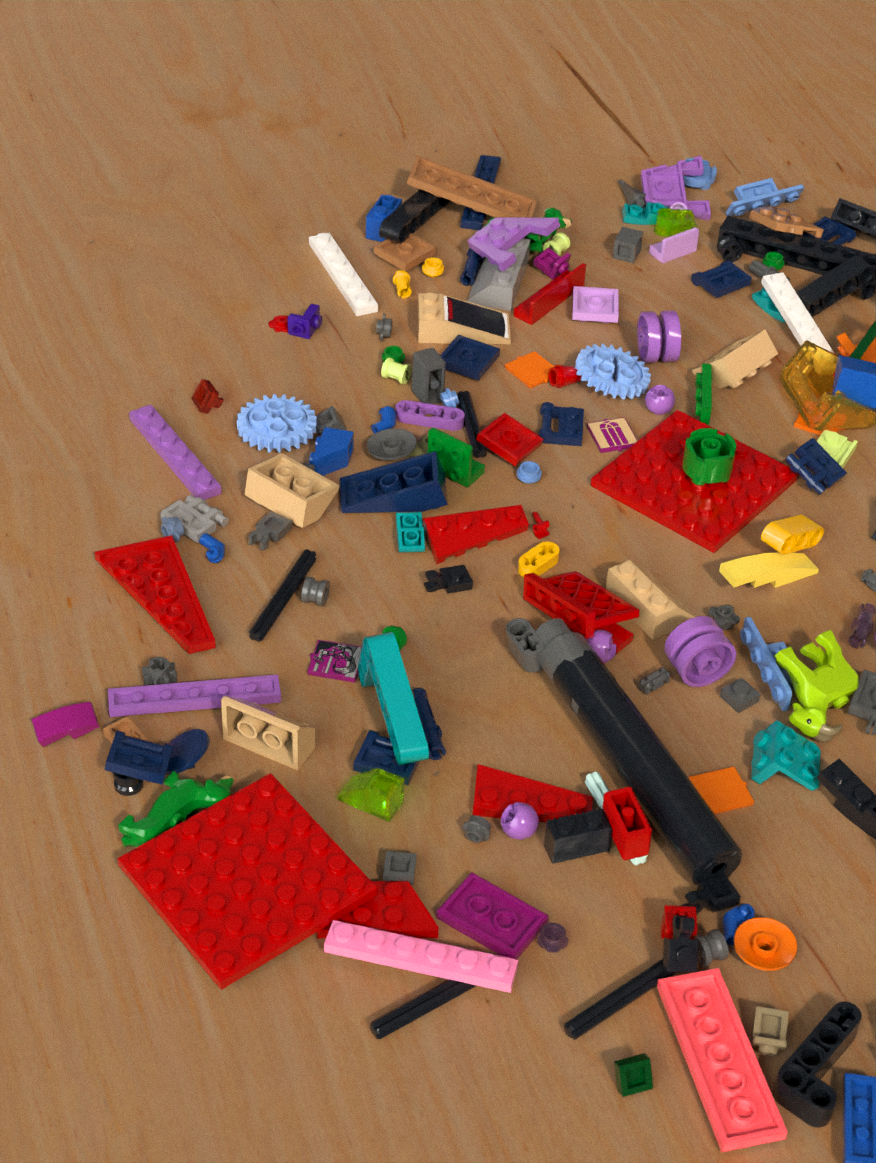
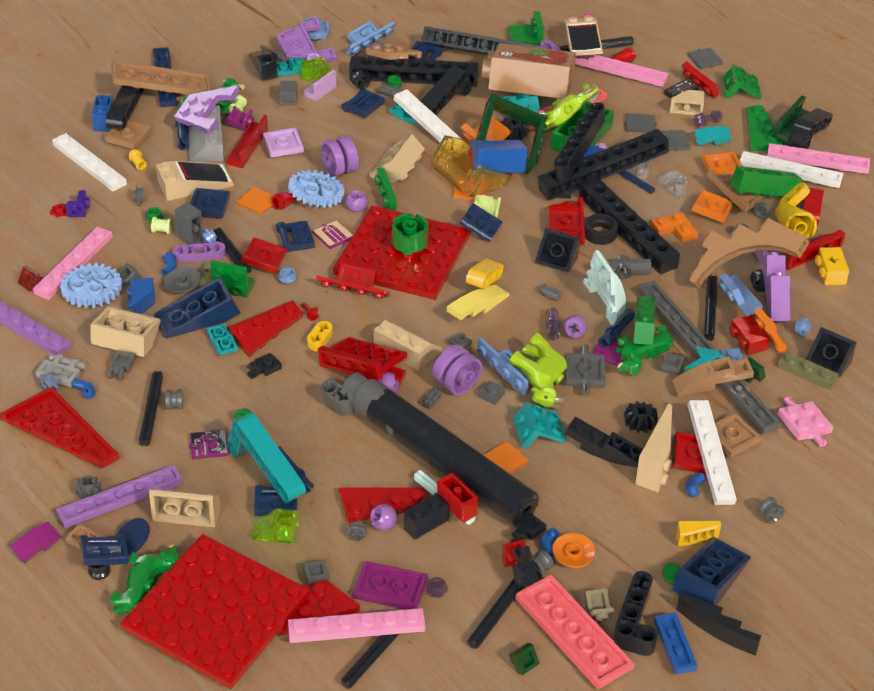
camera: 20 degrees left, 0 degrees up
(279, 384) = (79, 255): none -> bright pink plate
(433, 267) = (154, 141): yellow plate -> none
(612, 204) = (265, 64): none -> black slope
(615, 497) = (355, 278): none -> red bracket

